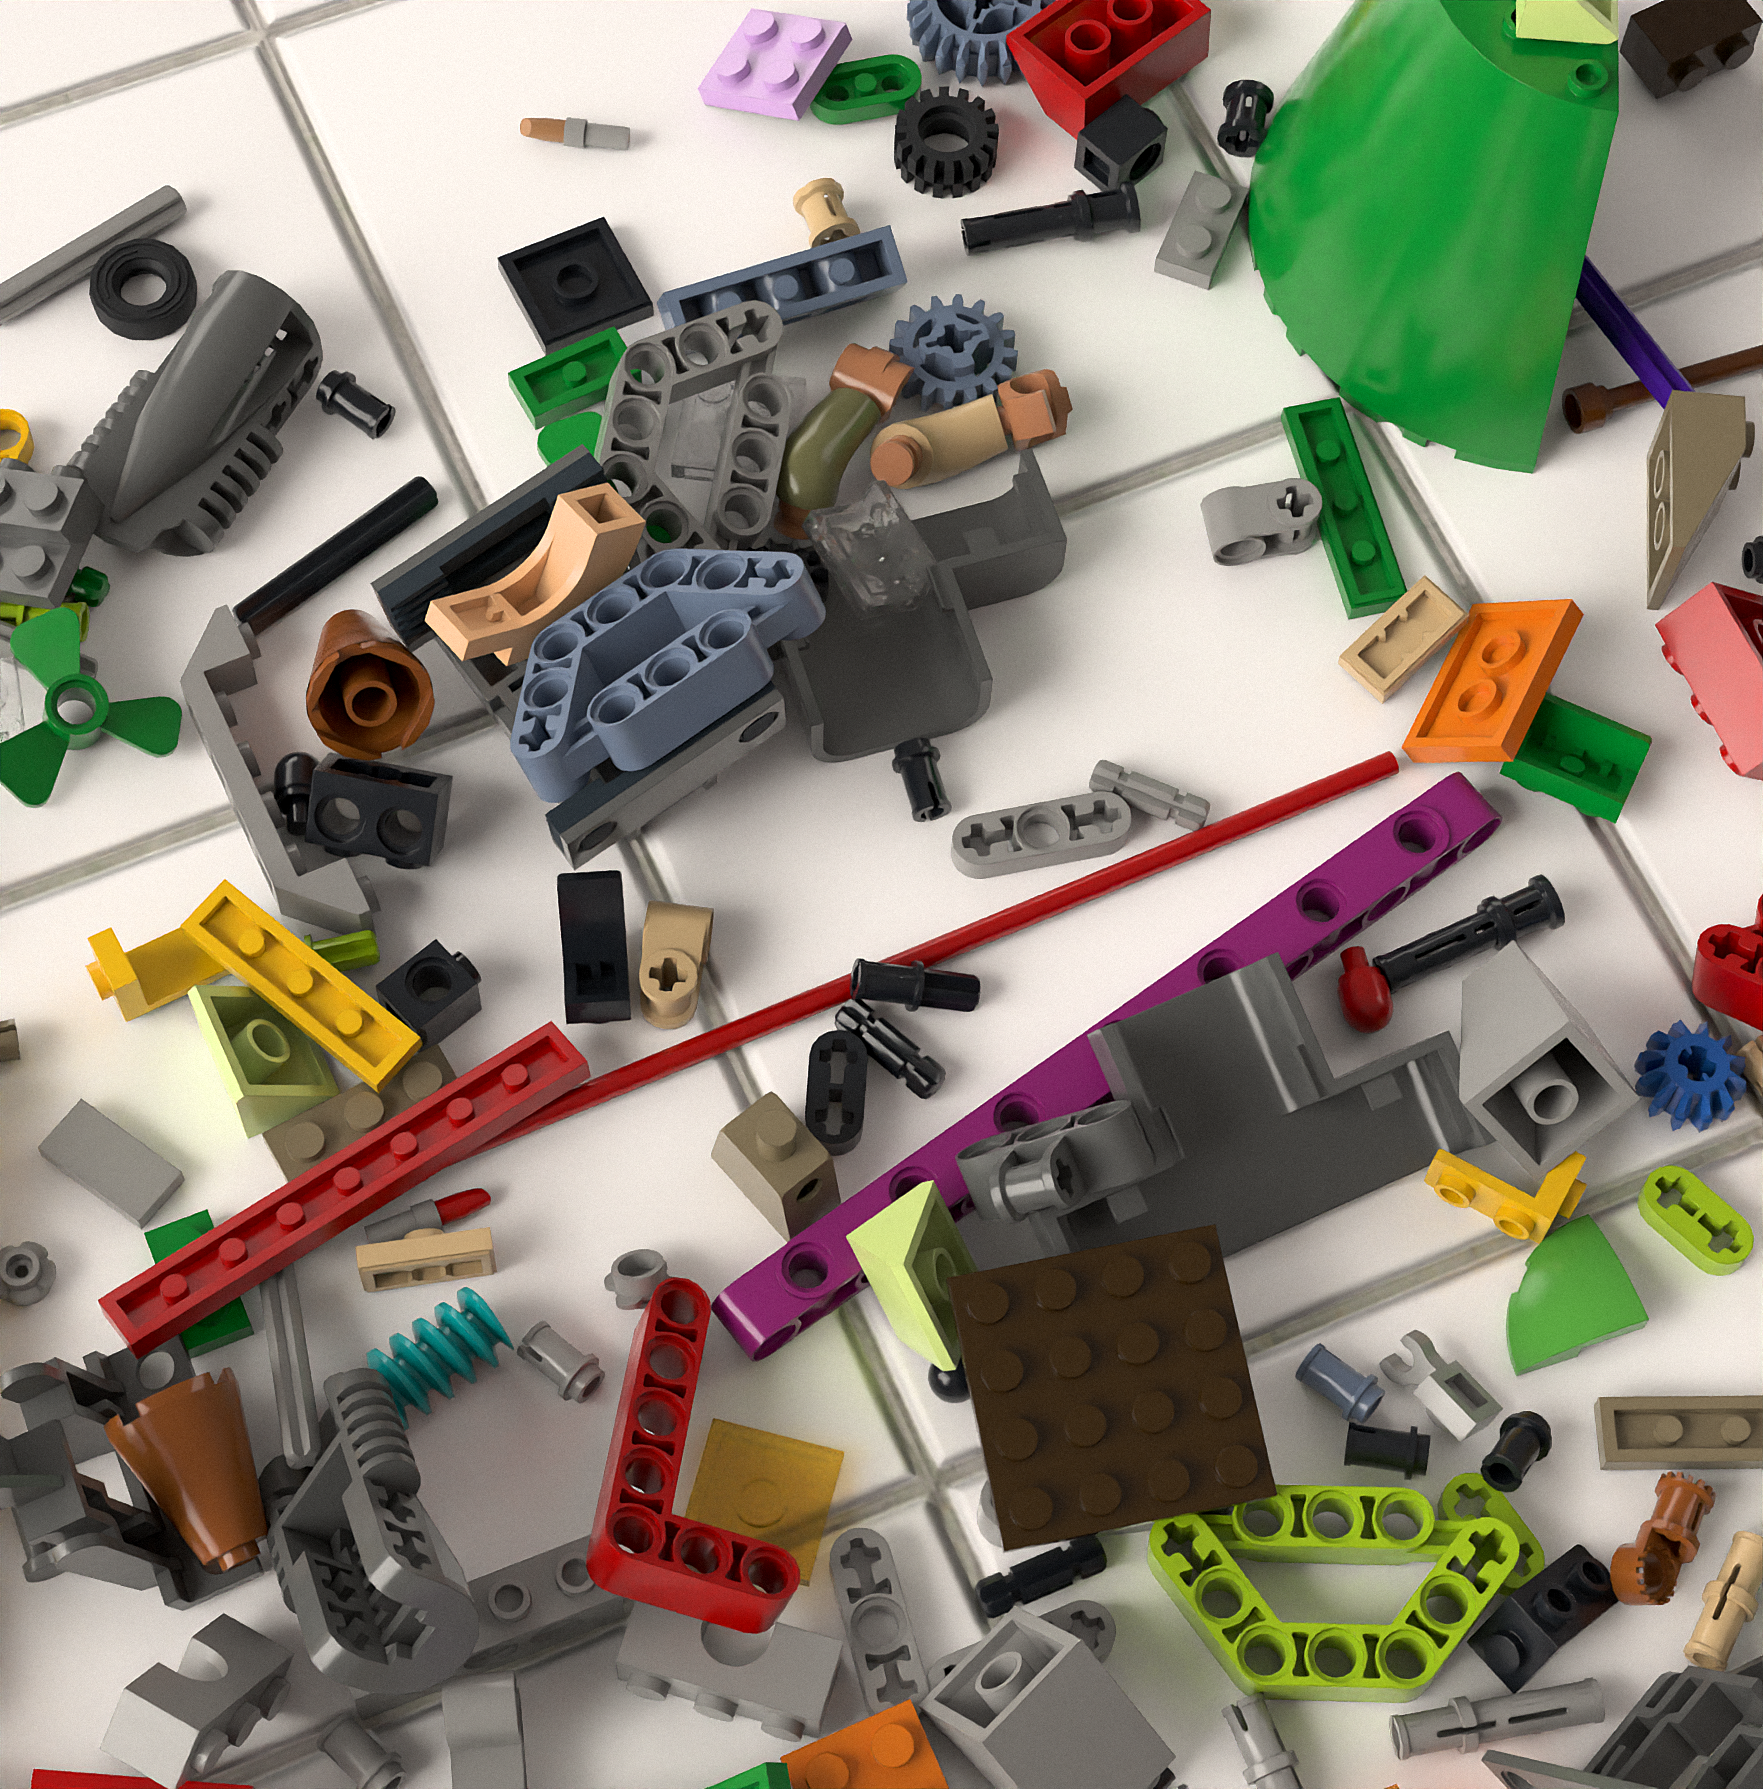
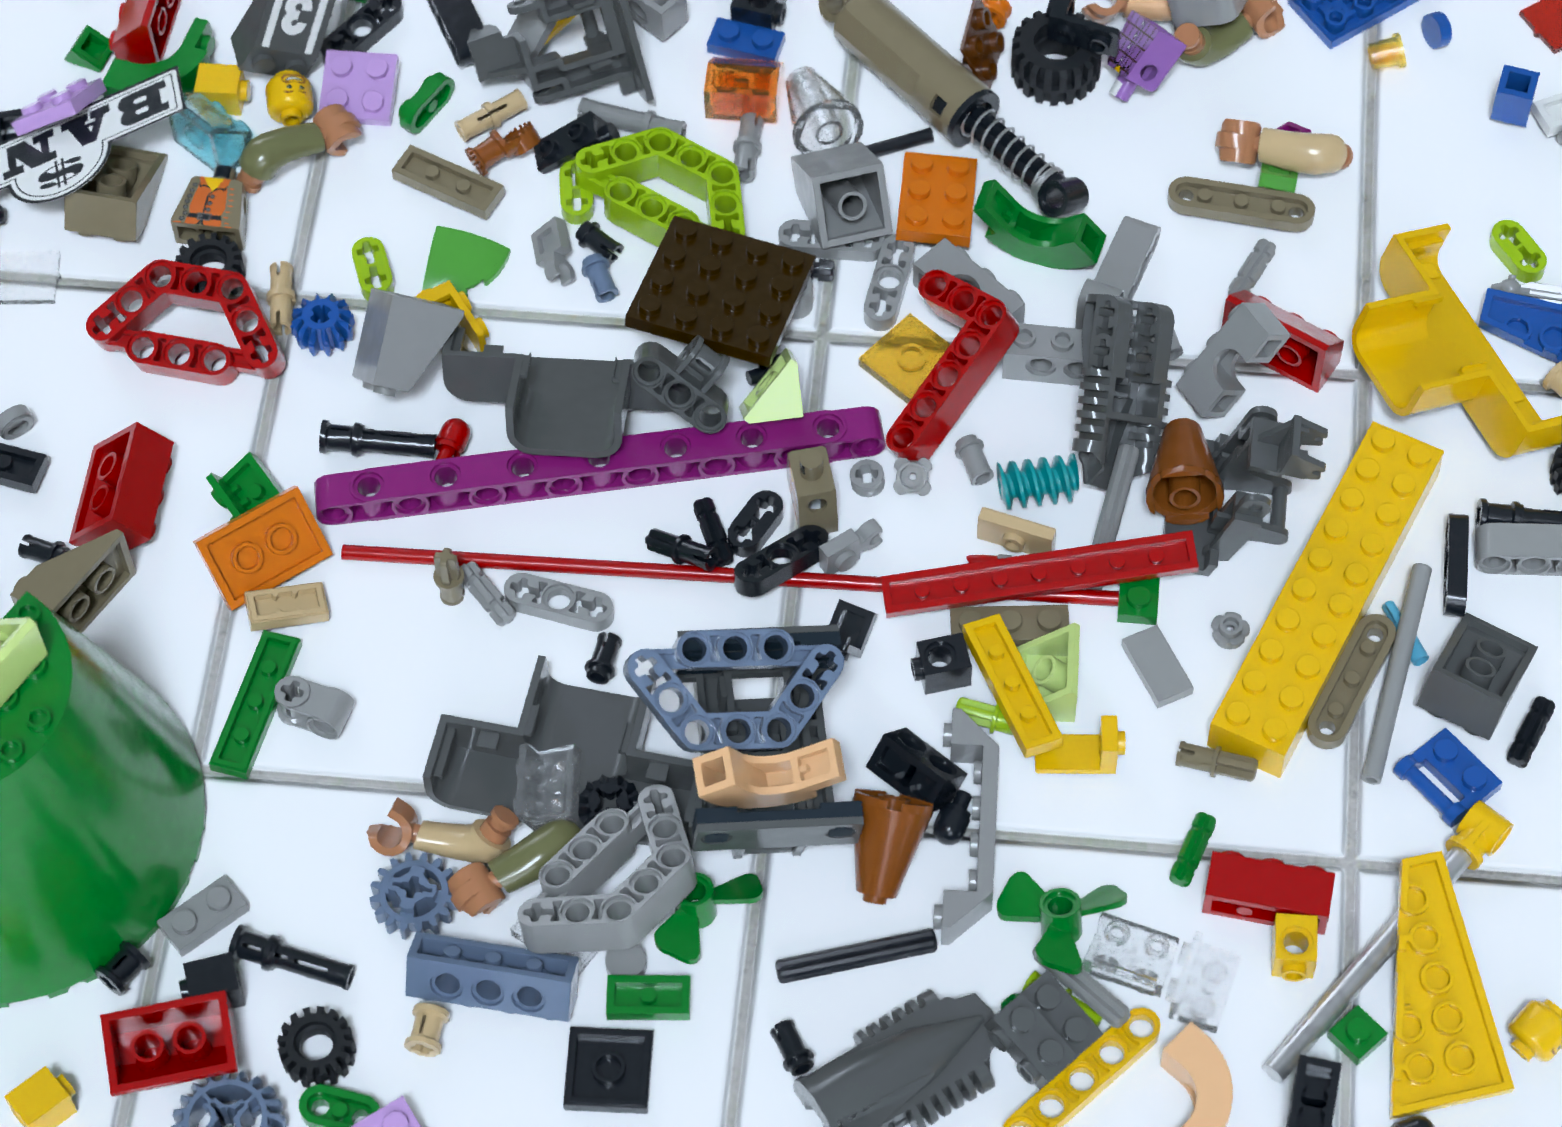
camera: 145 degrees left, 5 degrees down
(672, 1102) = (845, 549): none -> light grey plate
(673, 956) = (805, 608): tan piece -> none
(707, 1272) = (856, 476): none -> light grey bush
(756, 984) = (760, 574): none -> black beam
(1206, 758) = (448, 577): none -> dark tan axle
(1522, 1441) = (540, 210): black pin -> none

